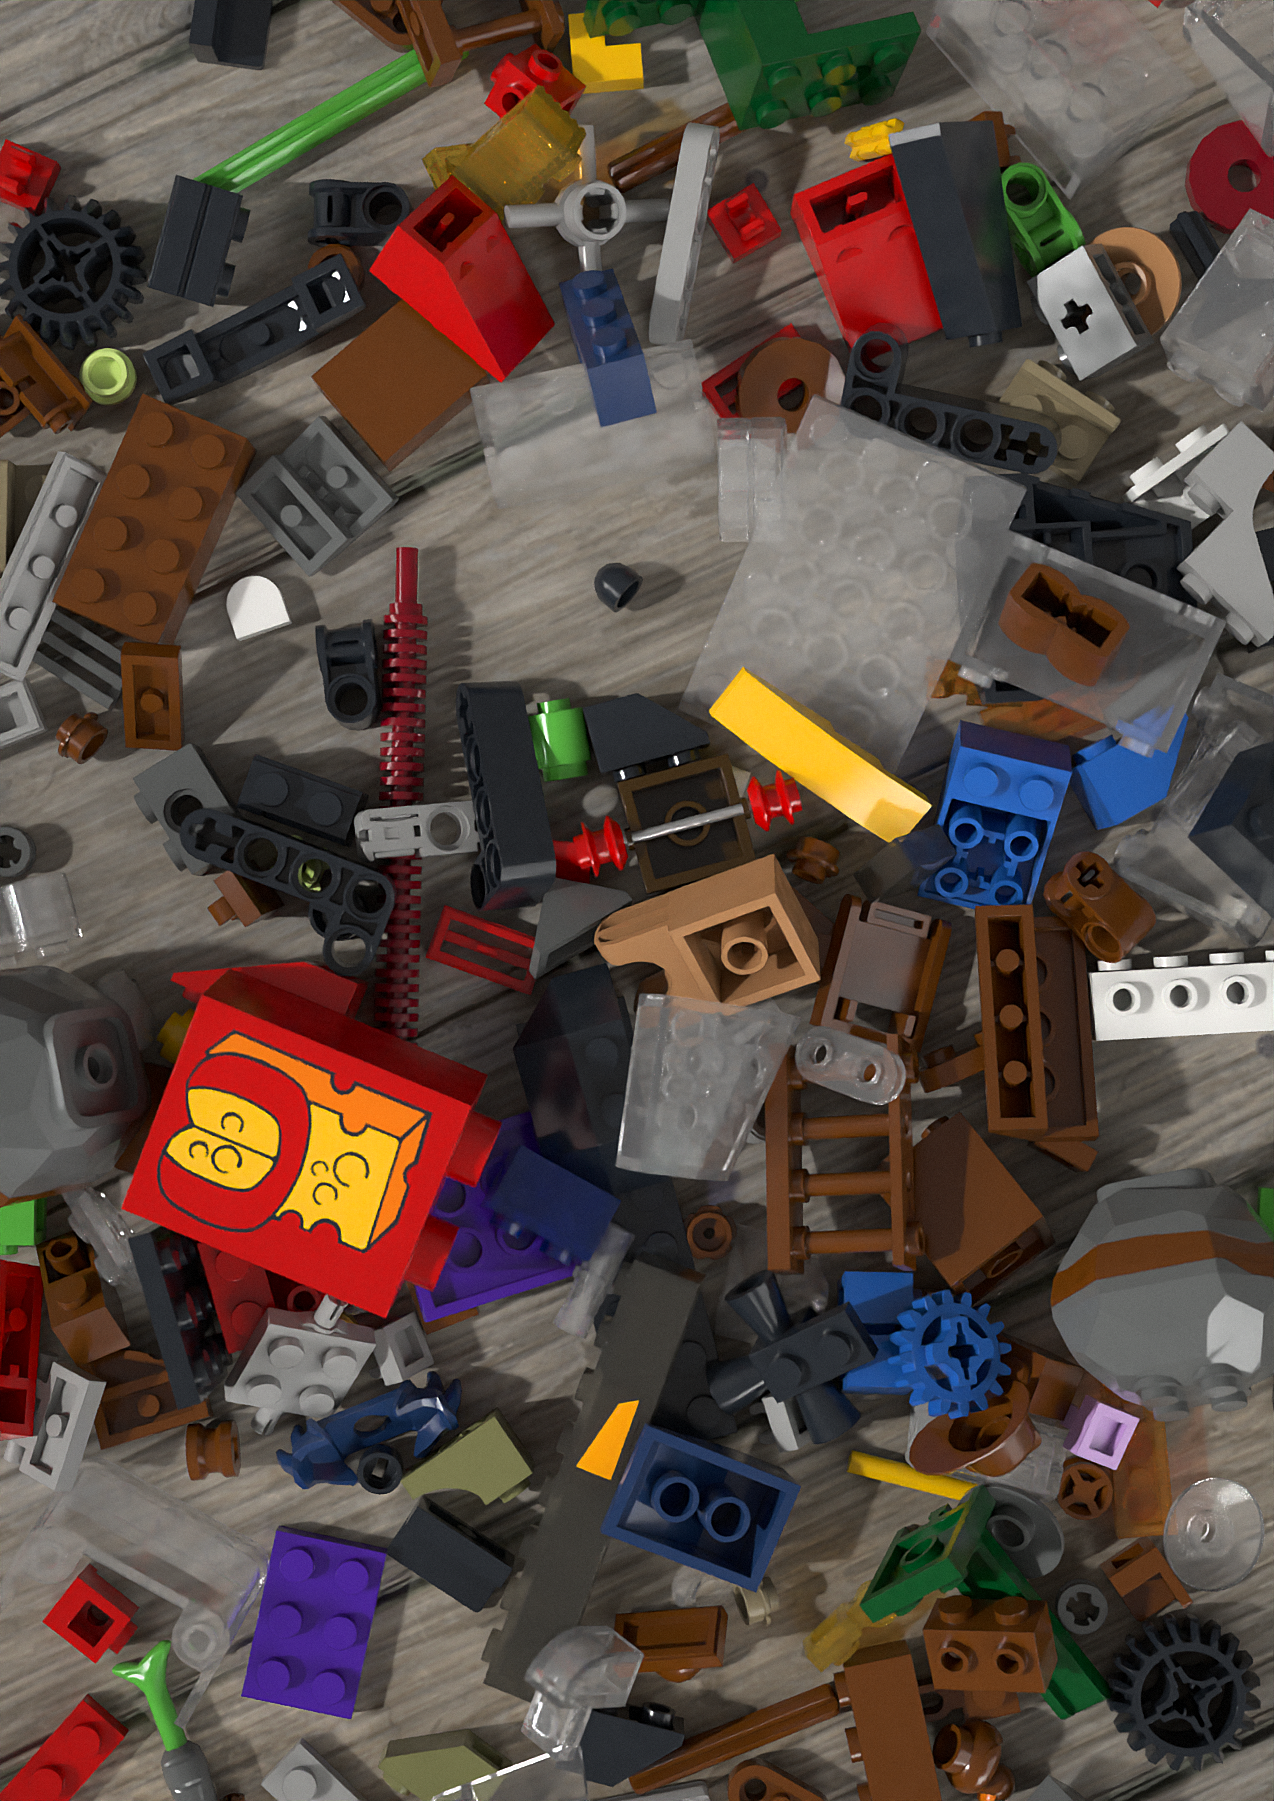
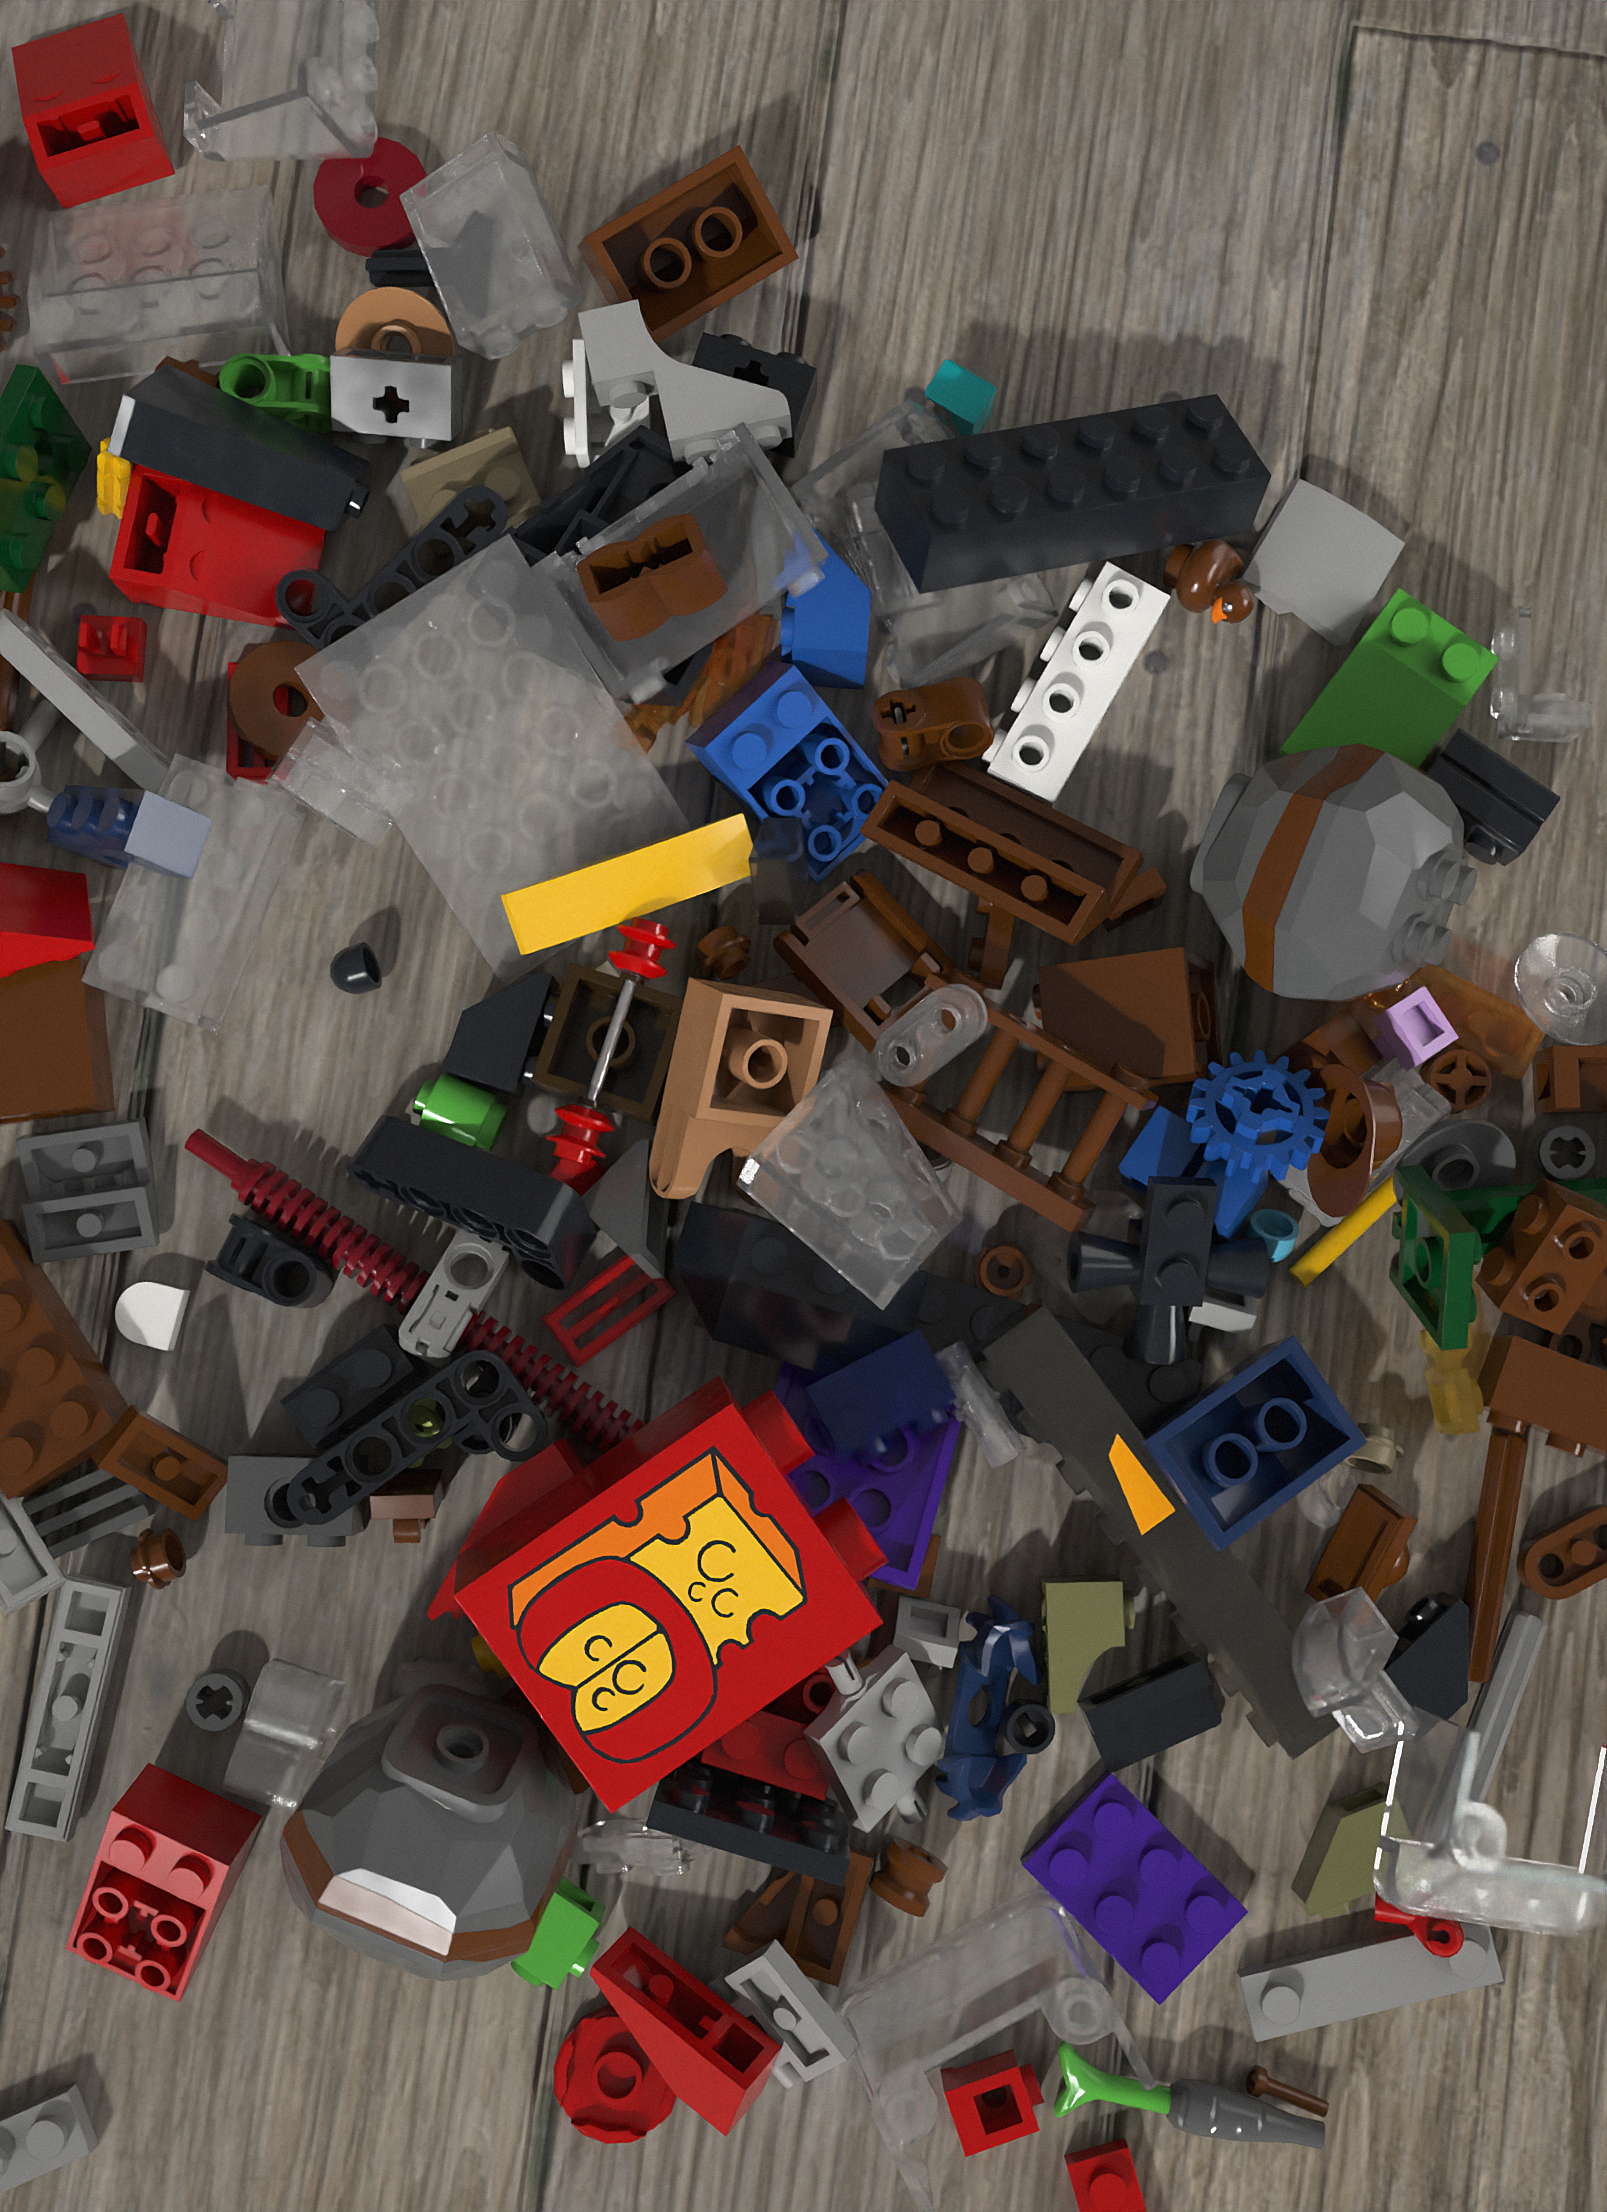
camera: 60 degrees left, 5 degrees down
(79, 1300) = (684, 1912): reddish brown slope -> none
(882, 1417) = (1280, 1225): none -> medium azure hinge

